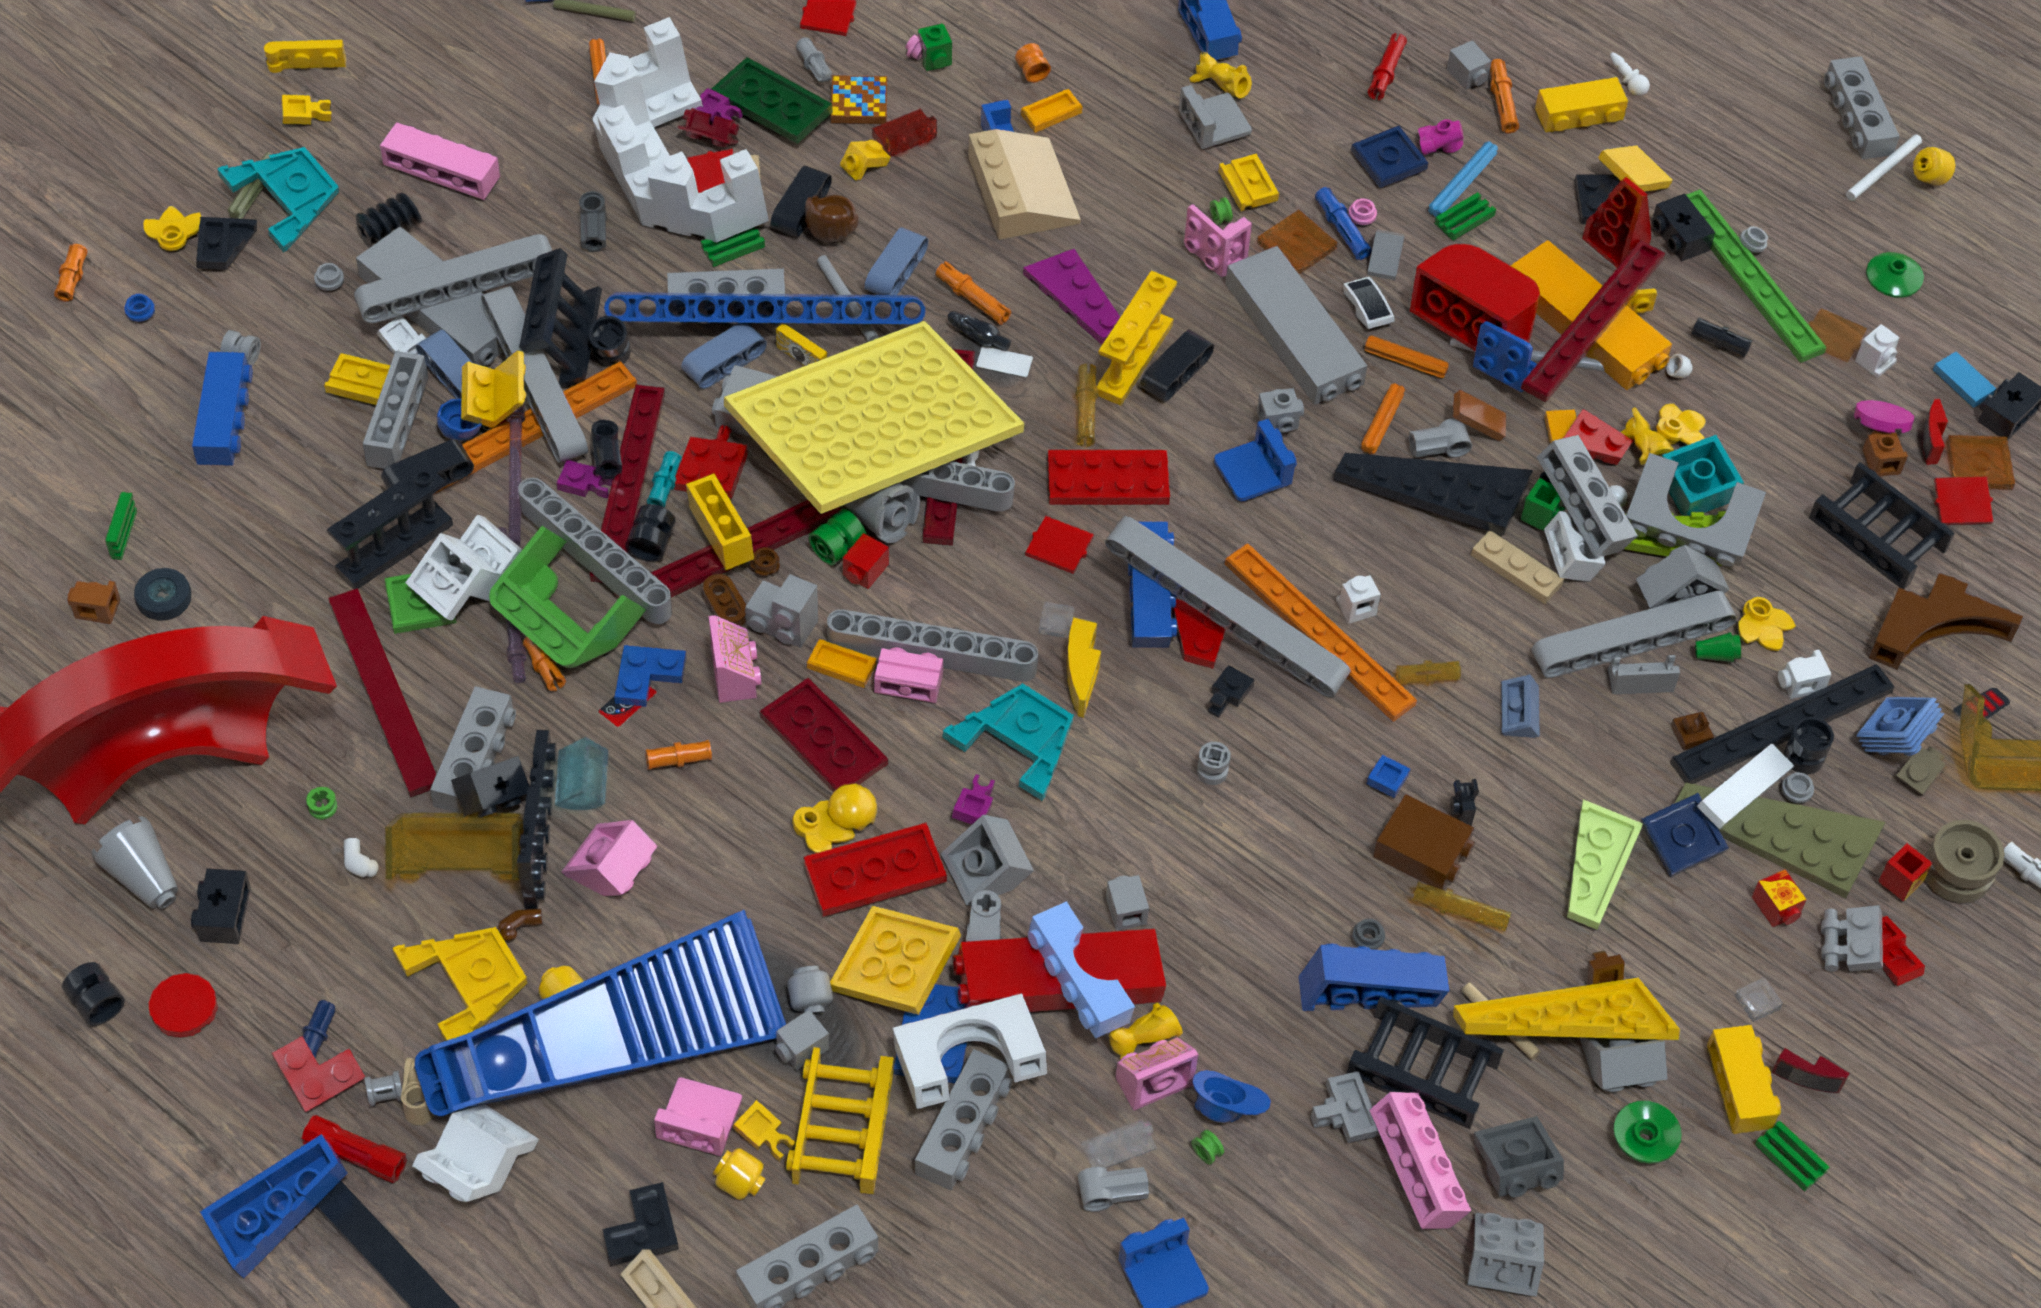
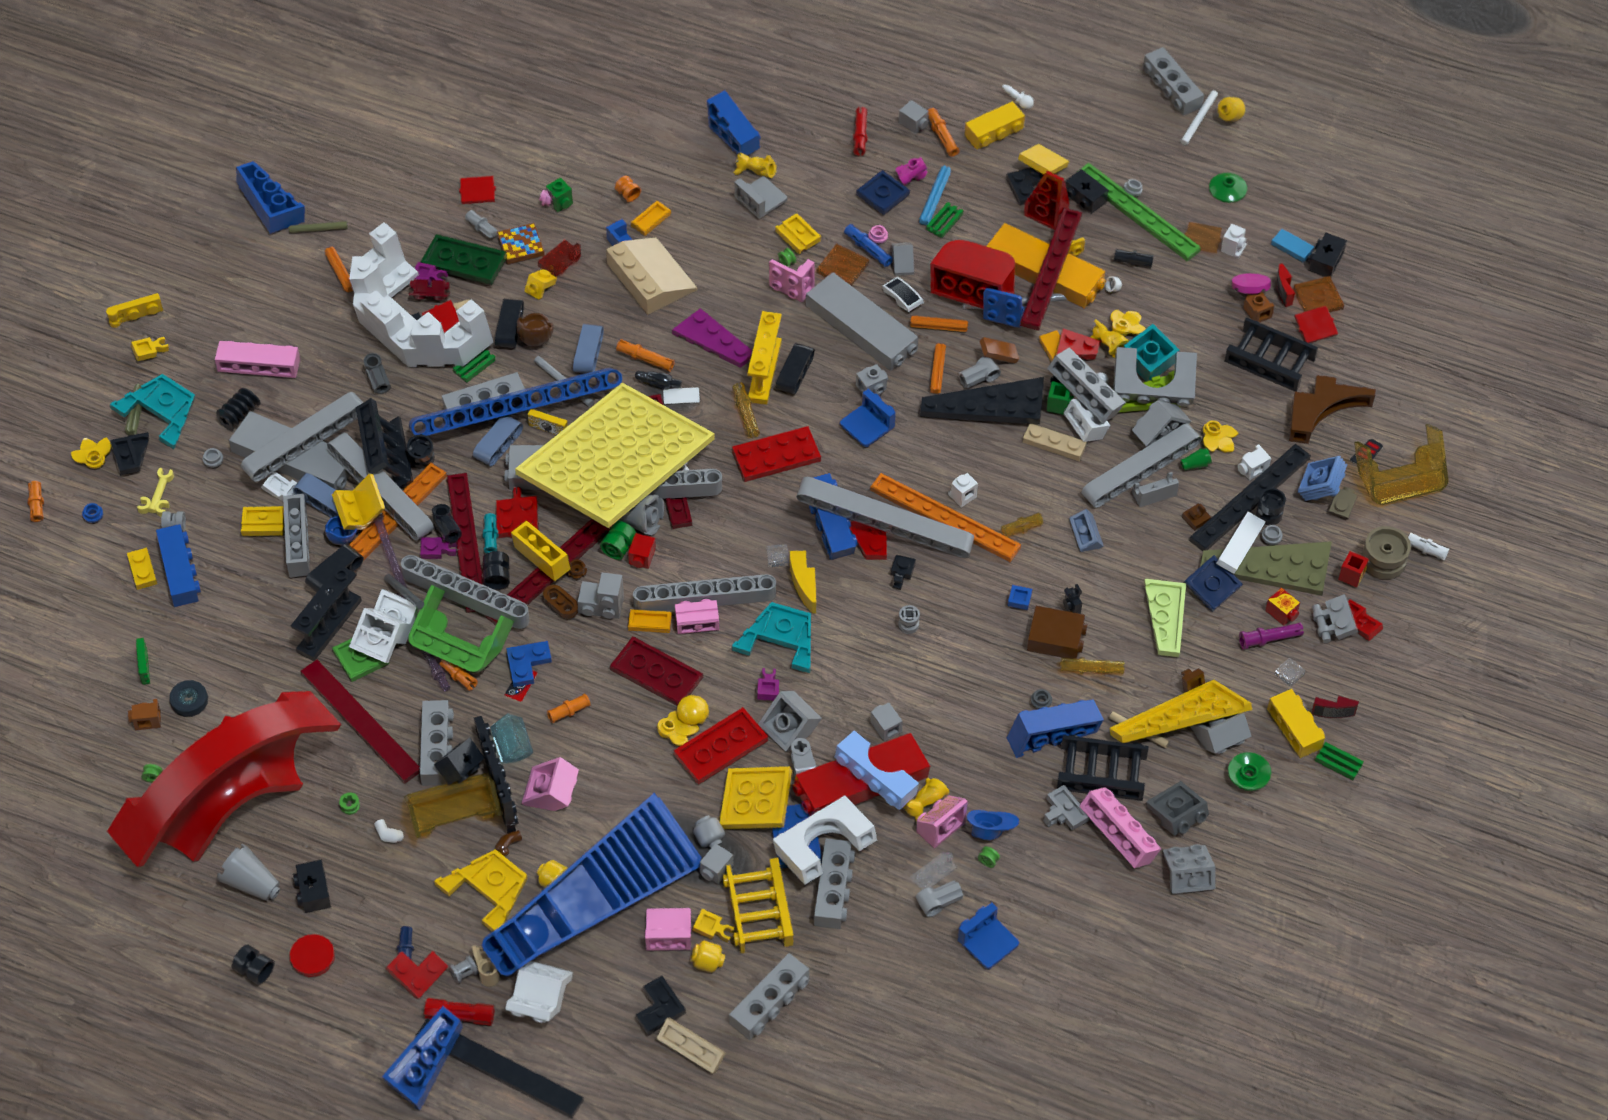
camera: 15 degrees left, 0 degrees up
(174, 400) = (142, 568): none -> yellow plate
(230, 318) = (156, 503): none -> light yellow bar
(509, 526) = (404, 591): none -> dark grey bar
(733, 660) = (581, 639): bright pink slope -> none
(1059, 544) = (760, 506): red piece -> none
(1732, 934) = (1261, 636): none -> magenta pin

